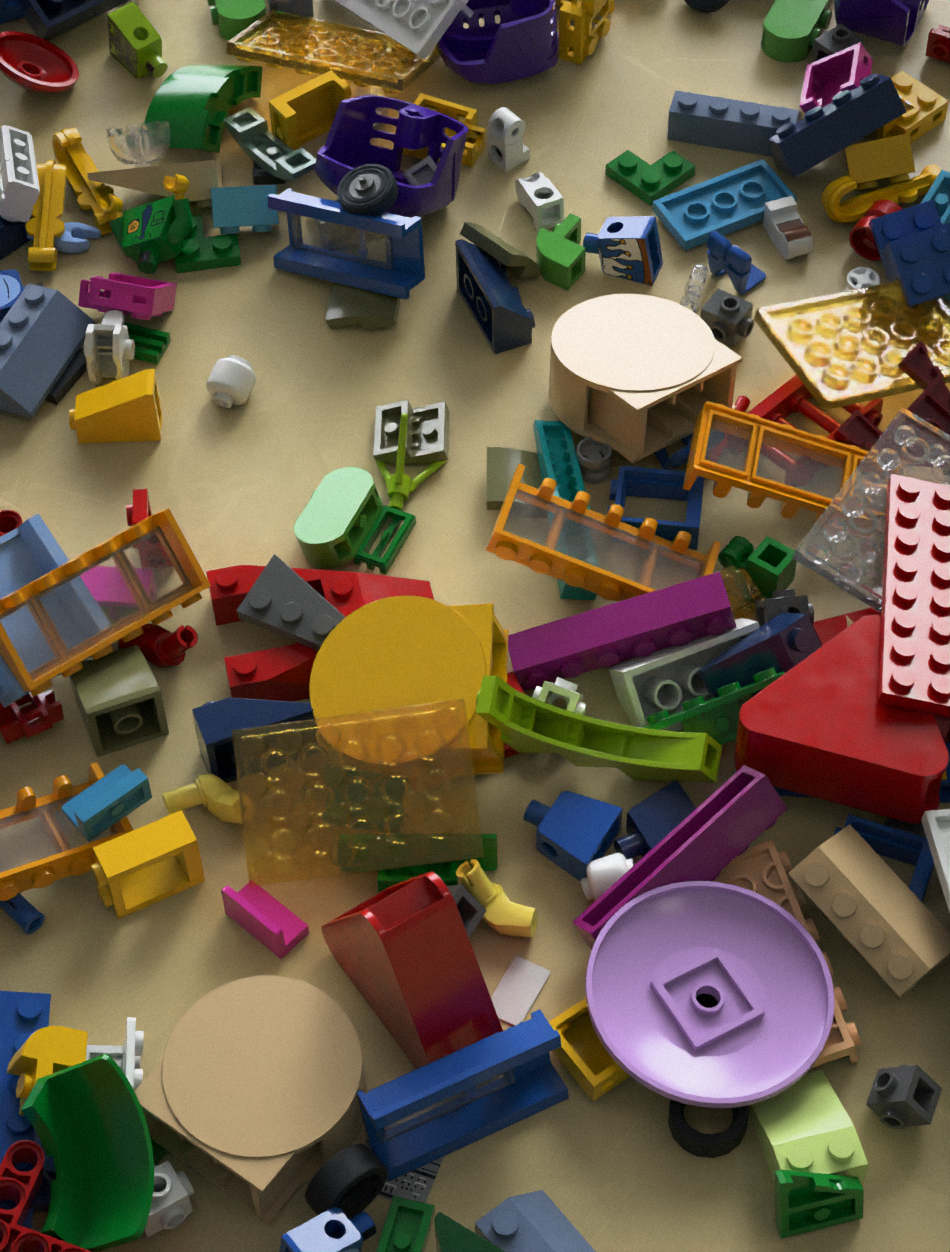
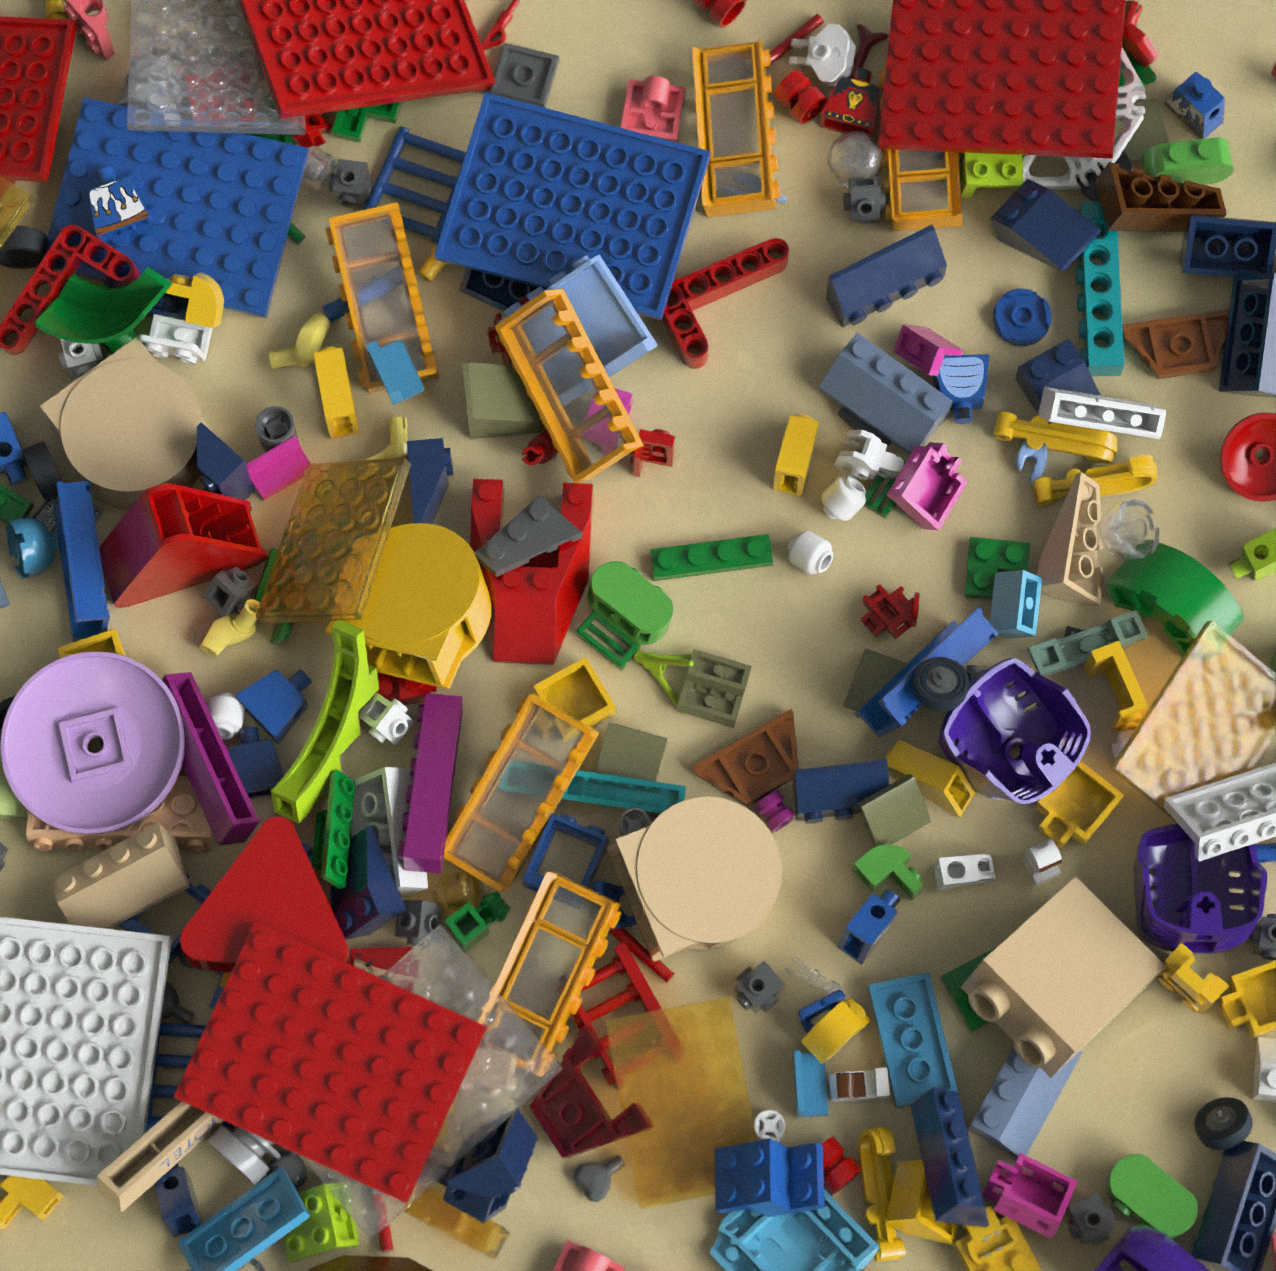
camera: 105 degrees right, 20 degrees up
(89, 929) = (307, 343): none -> light yellow arm
(153, 229) = (1006, 518): green torso -> none
(164, 359) = (843, 498): none -> white head
(215, 925) = (274, 427): none -> dark grey wheel
(258, 471) = (711, 557): none -> green plate
(274, 294) = (884, 617): none -> red piece
(298, 941) = (220, 467): none -> dark blue slope
(421, 172) = (998, 763): light grey tile -> none
(449, 218) = (937, 778): none -> yellow slope
(459, 546) = (578, 693): none -> yellow piece
(462, 1173) = (30, 545): none -> dark azure cylinder
(482, 379) = (754, 762): none -> dark orange wing
(518, 990) = (167, 630): white sticker -> none
(528, 354) = (774, 811): none -> magenta wheel
(627, 82) = (1061, 977): none -> tan brick
(755, 242) = (835, 1030): none -> yellow brick
(805, 271) = (809, 1085): none -> dark azure panel

